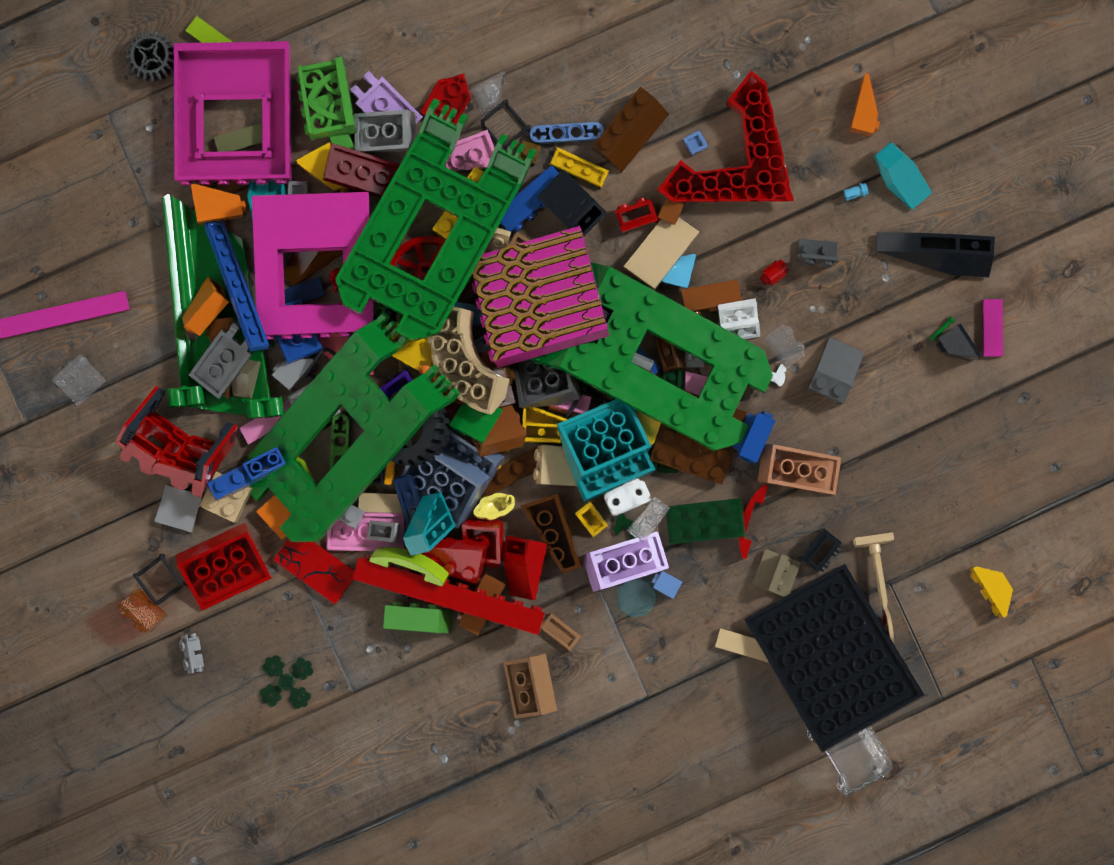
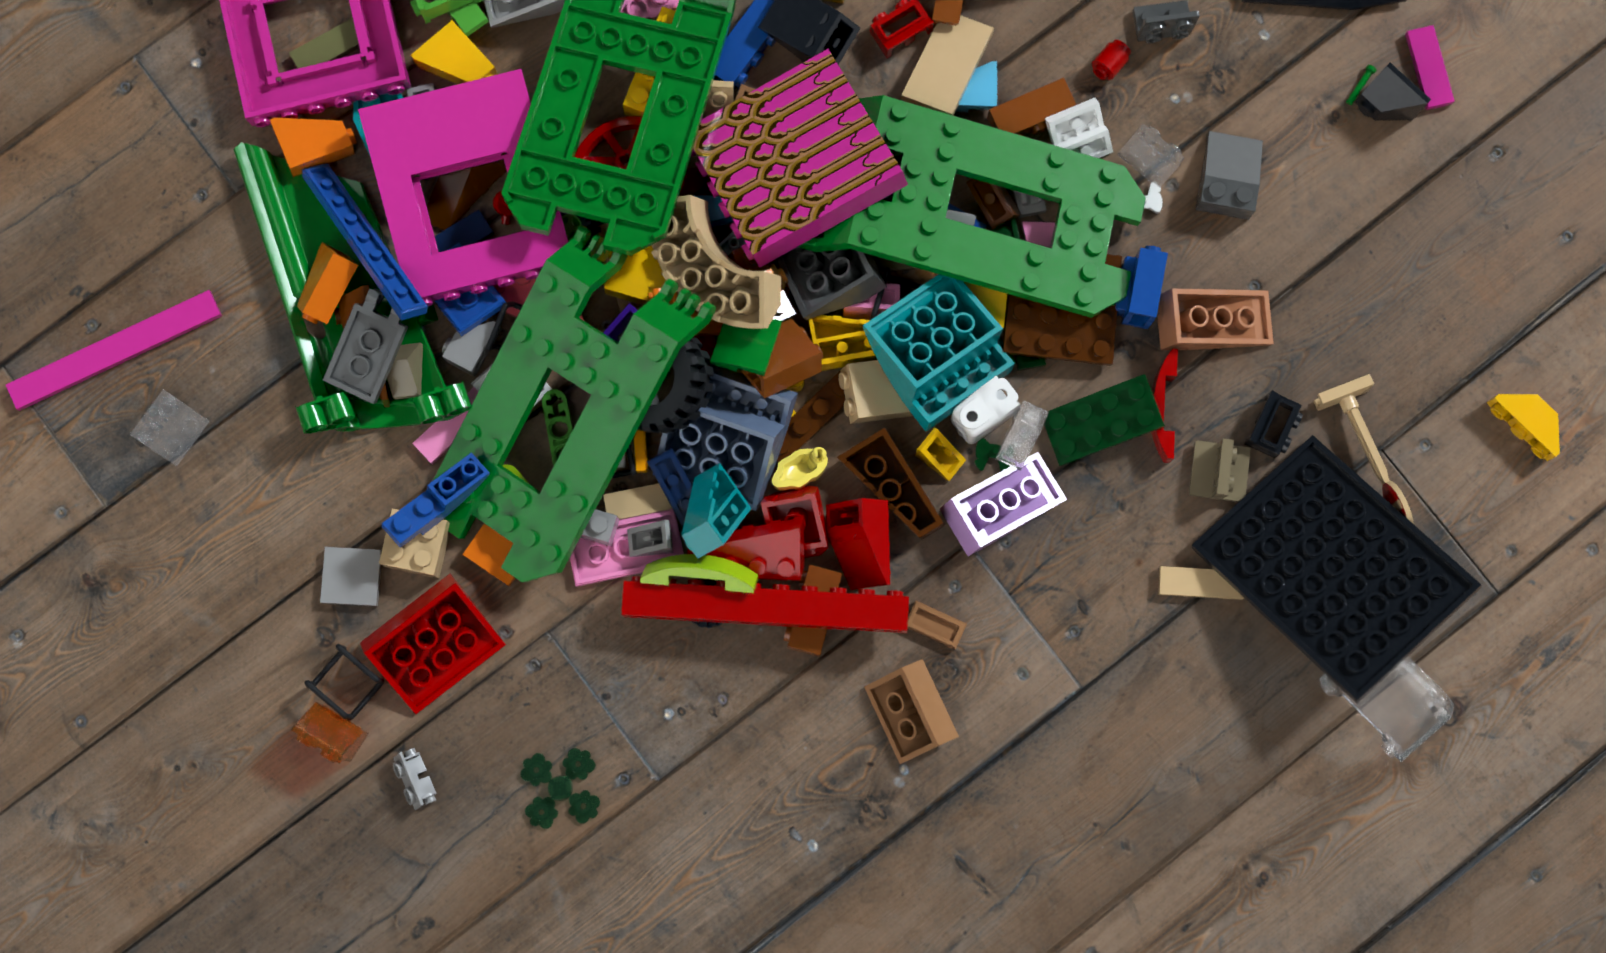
camera: 10 degrees left, 5 degrees down
(174, 458) = (330, 490): red container -> none
(316, 568) = (565, 615): red tile -> none
(358, 170) = (499, 47): dark red plate -> none
(417, 618) = (727, 651): bright green wedge -> none
(636, 598) = (1031, 552): clear light blue tile -> none
(666, 584) = (1069, 521): medium blue brick -> none

